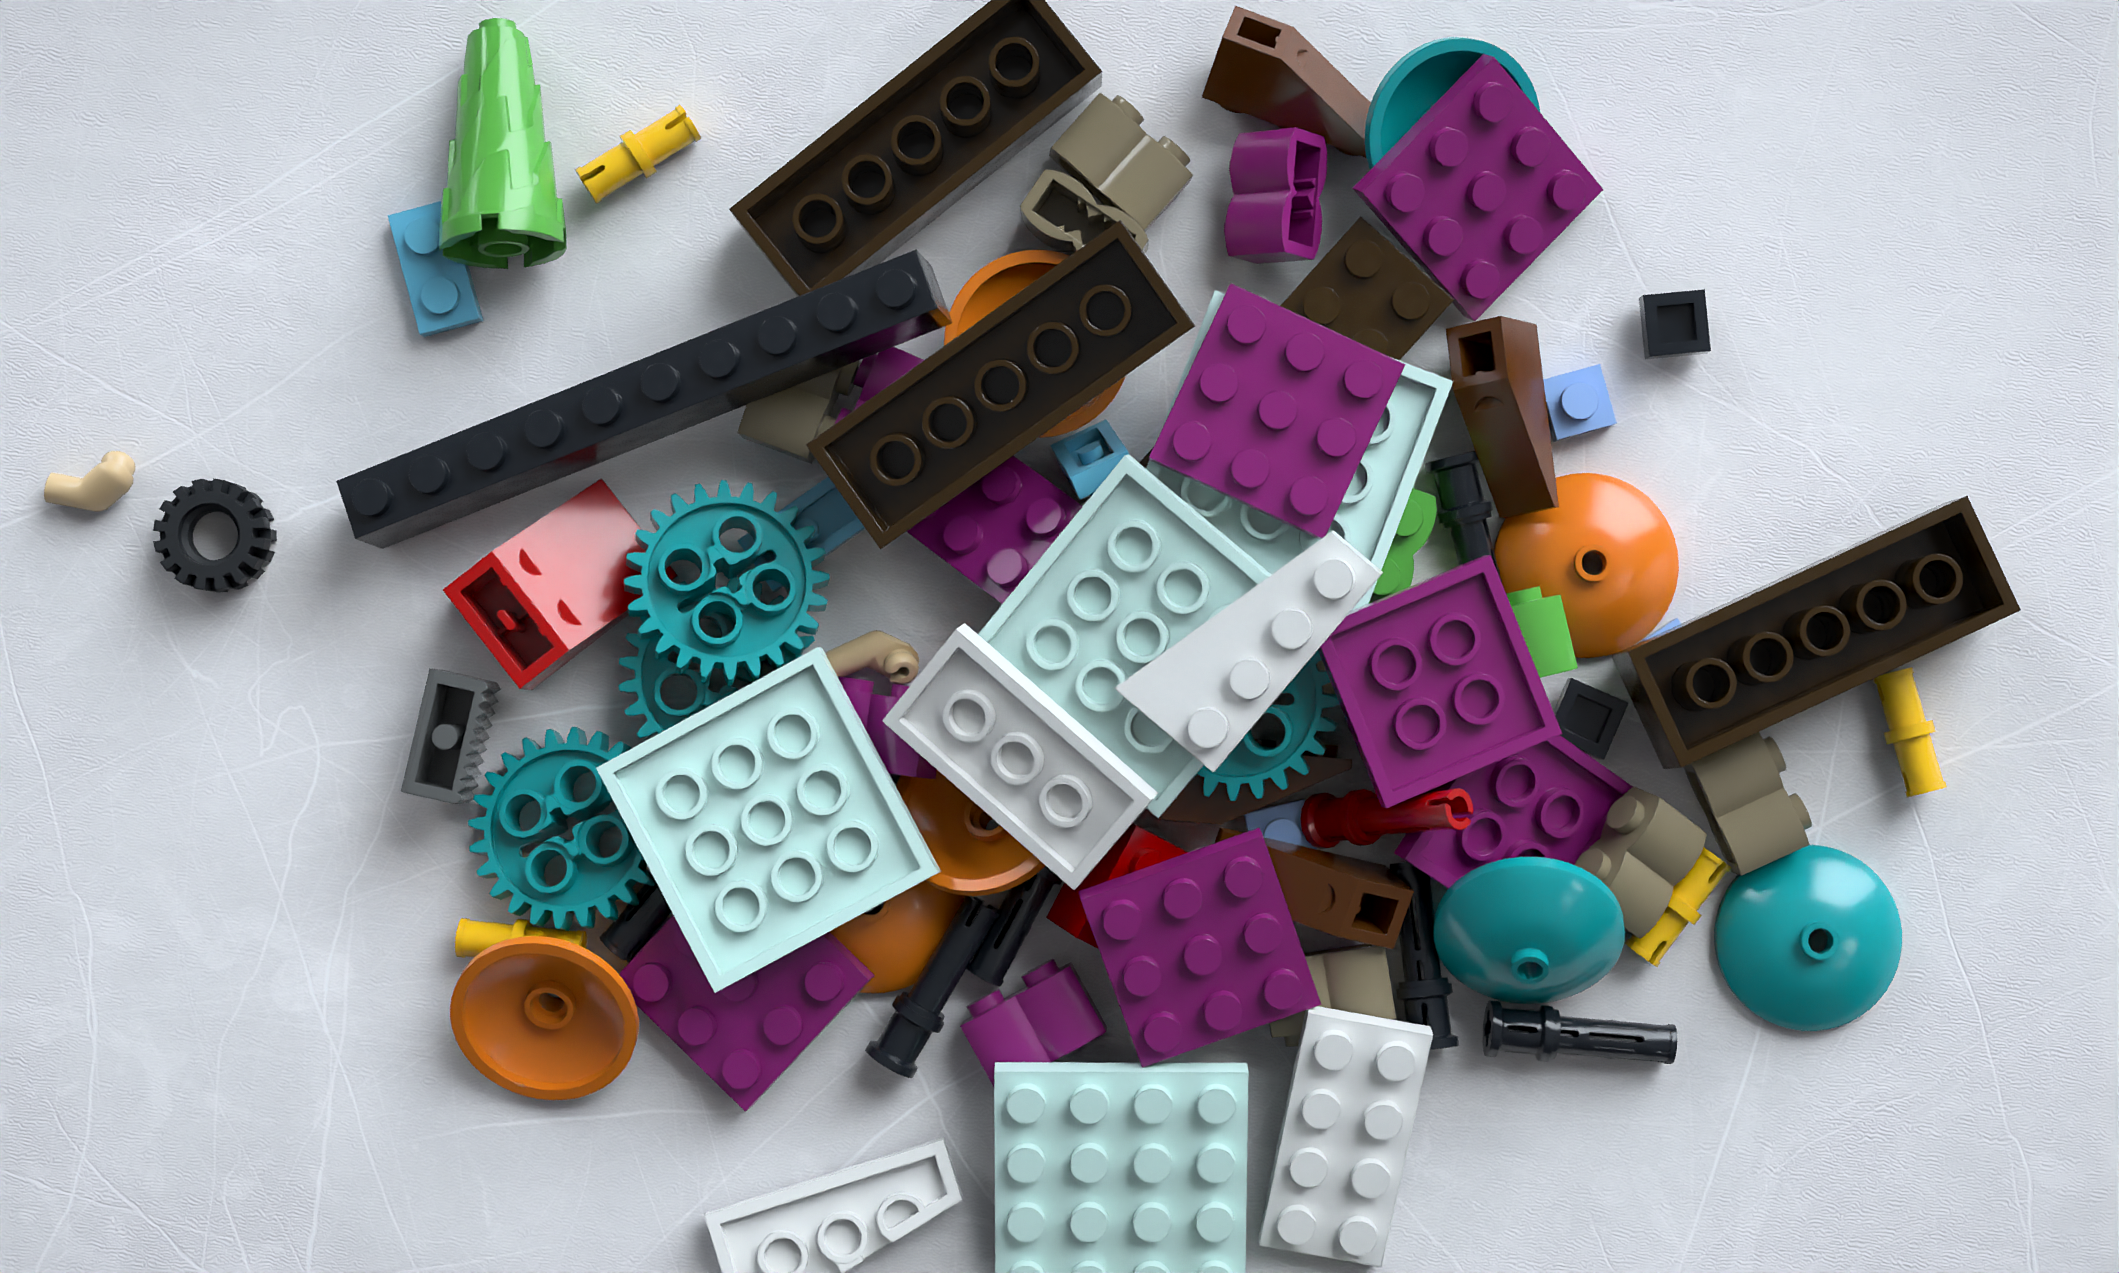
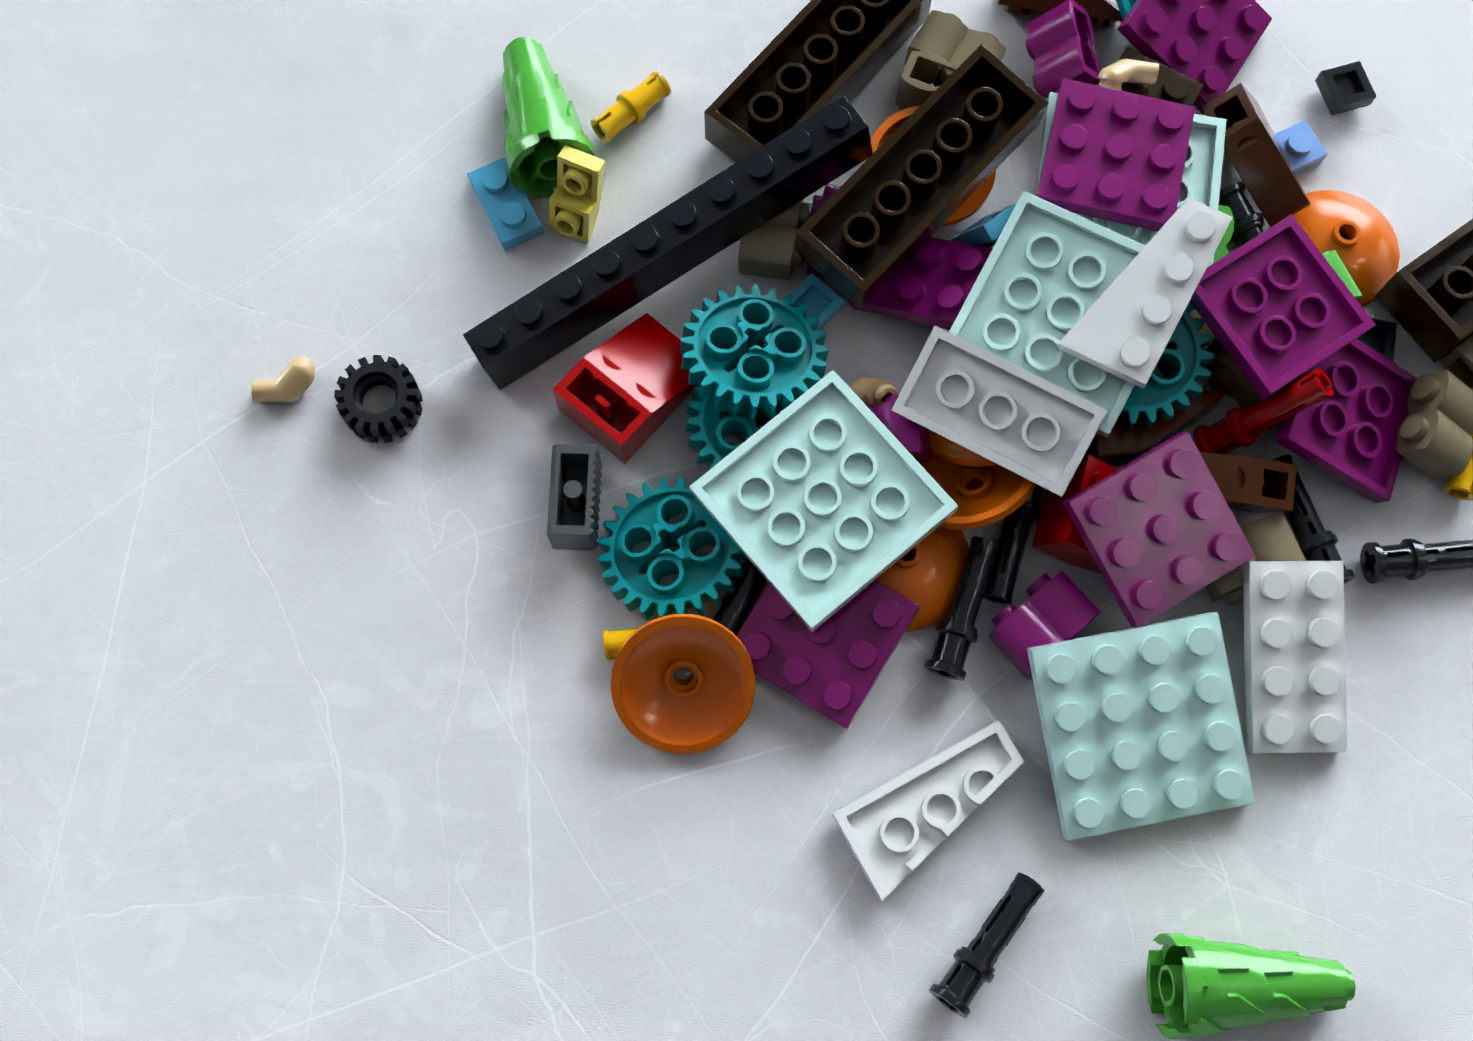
camera: 15 degrees left, 15 degrees down
(530, 293) = (577, 195): none -> light yellow slope
(1332, 270) = (1128, 71): none -> tan arm
(1529, 930) = (1369, 465): teal dish -> none

